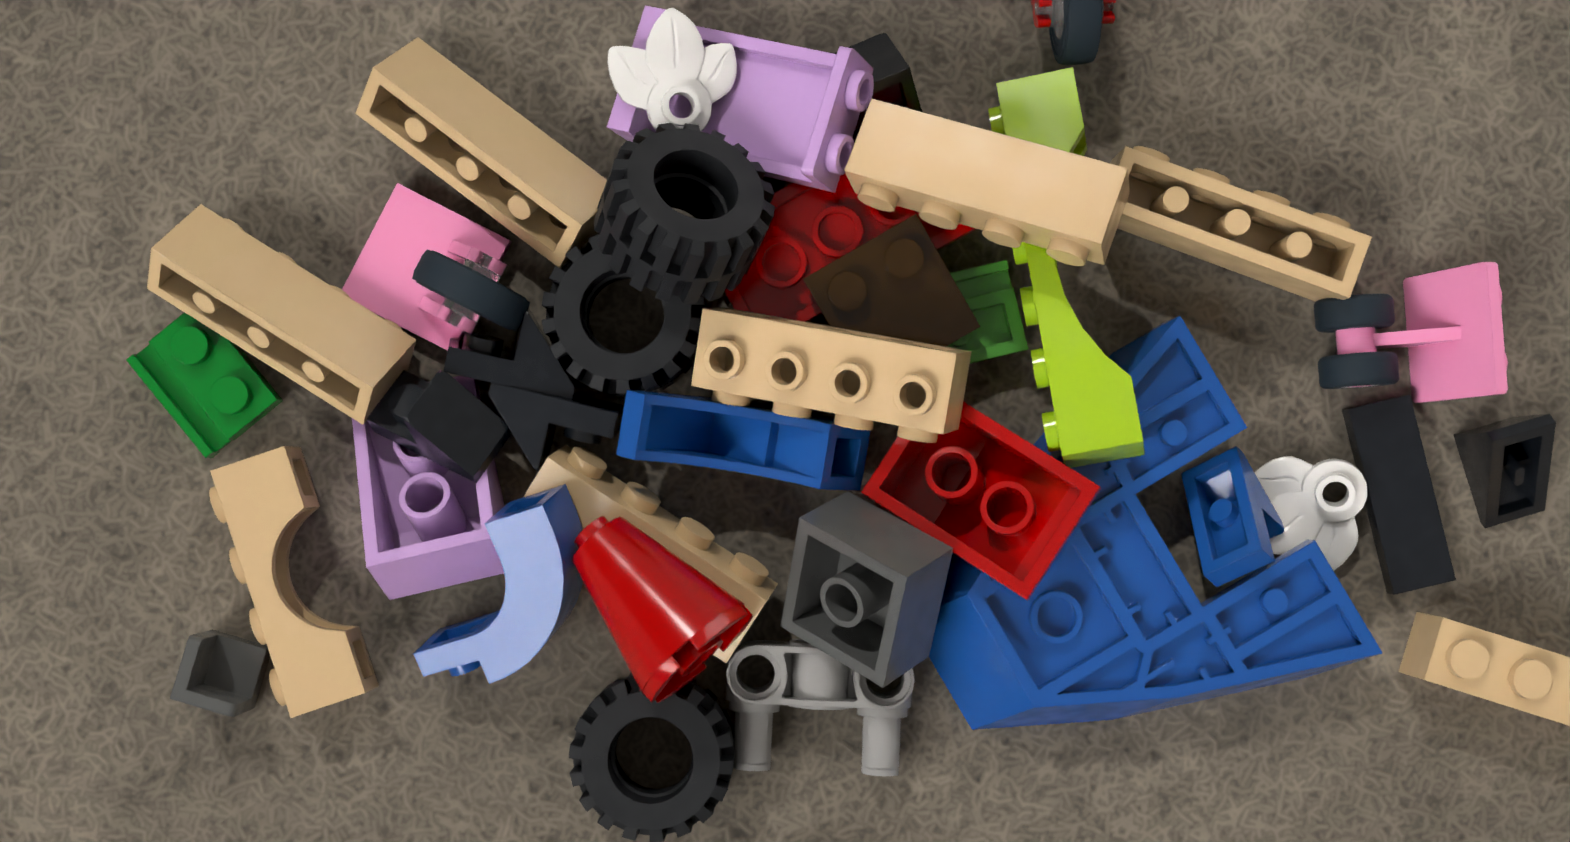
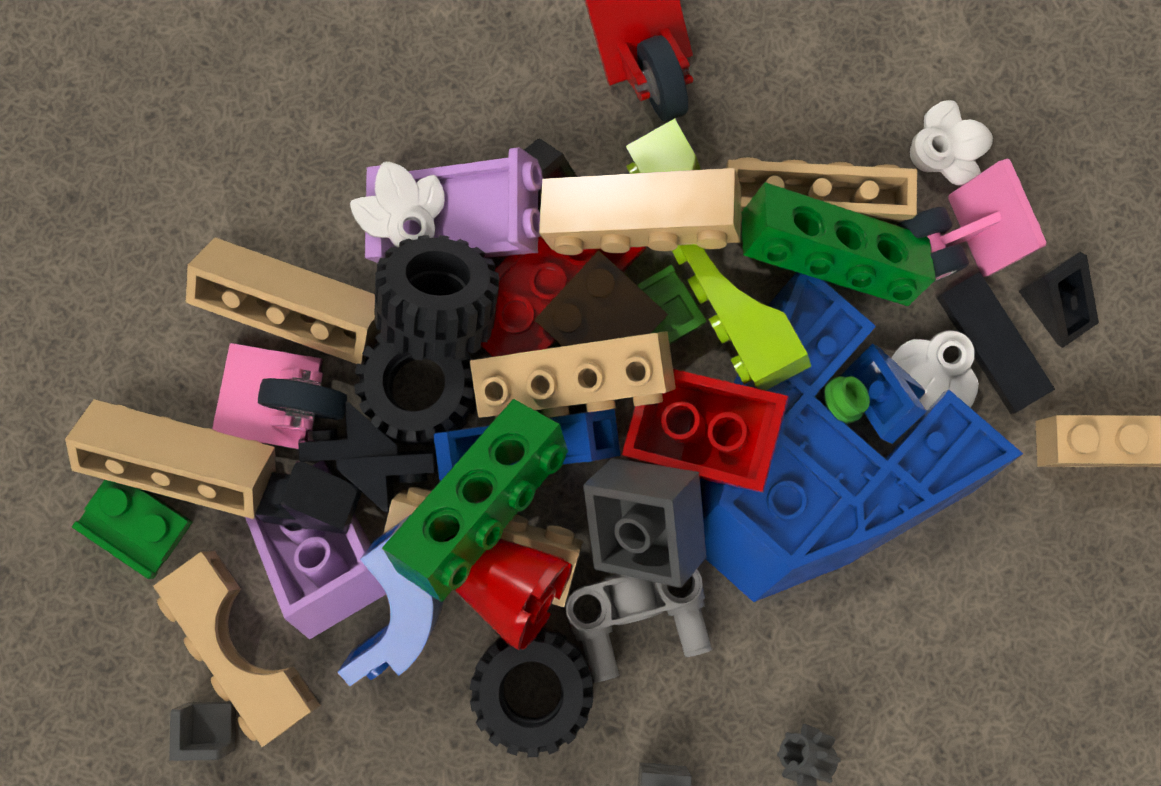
camera: 15 degrees left, 5 degrees down
(673, 463) = (453, 508): none -> green brick
(1177, 509) = (846, 398): none -> bright green plate
(1230, 304) = (836, 245): none -> green brick
(1437, 209) = (955, 141): none -> white plate

